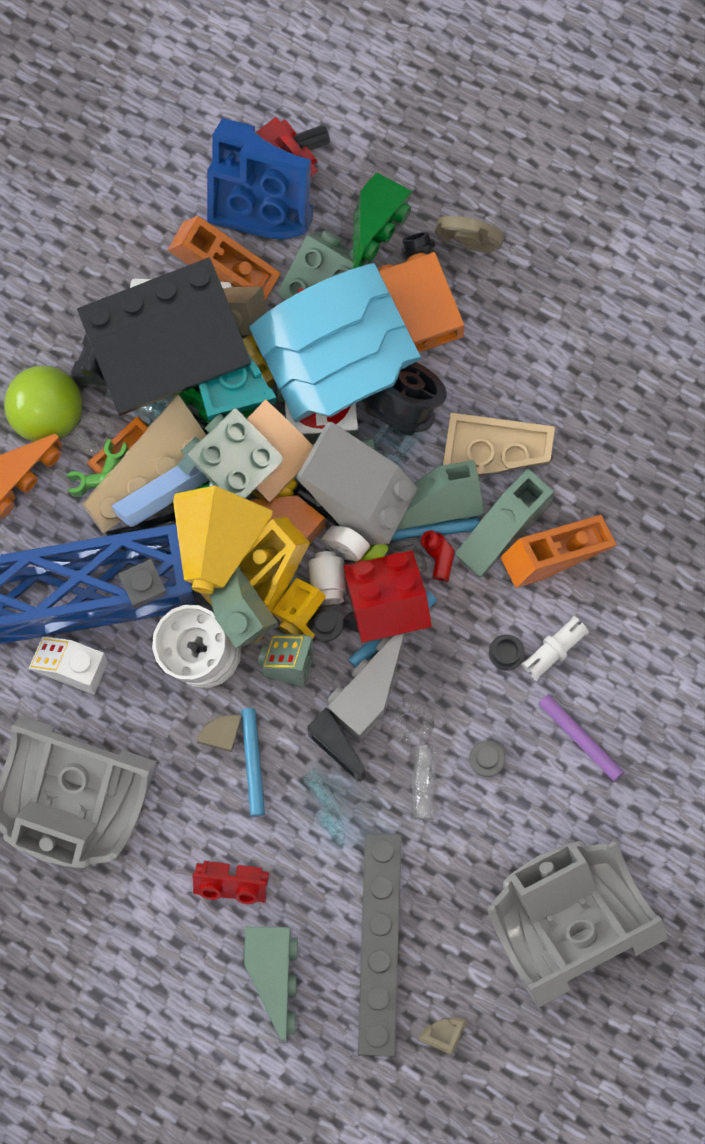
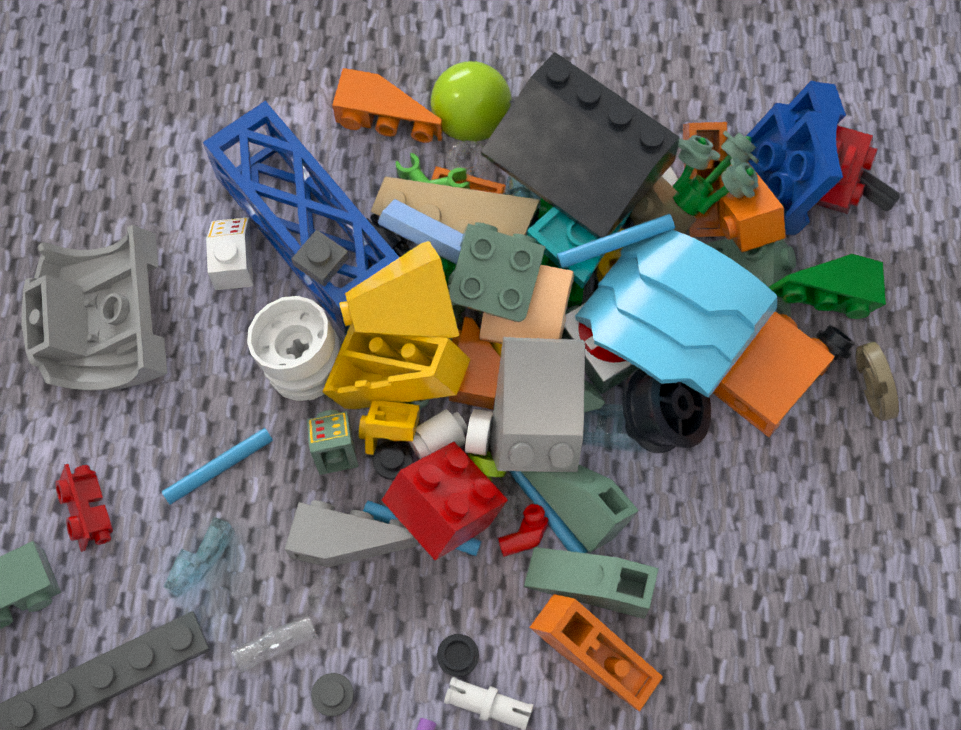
camera: 60 degrees right, 5 degrees down
(220, 732) = (232, 421): dark tan tile -> none
(241, 275) = (738, 179): none -> plant
(241, 611) = (344, 363): sand green slope -> none
(259, 354) = (615, 241): none -> dark azure bar
(283, 241) = (755, 219): none -> orange slope
(331, 739) = (270, 533): black slope -> none
(497, 443) = (674, 528): tan wing -> none

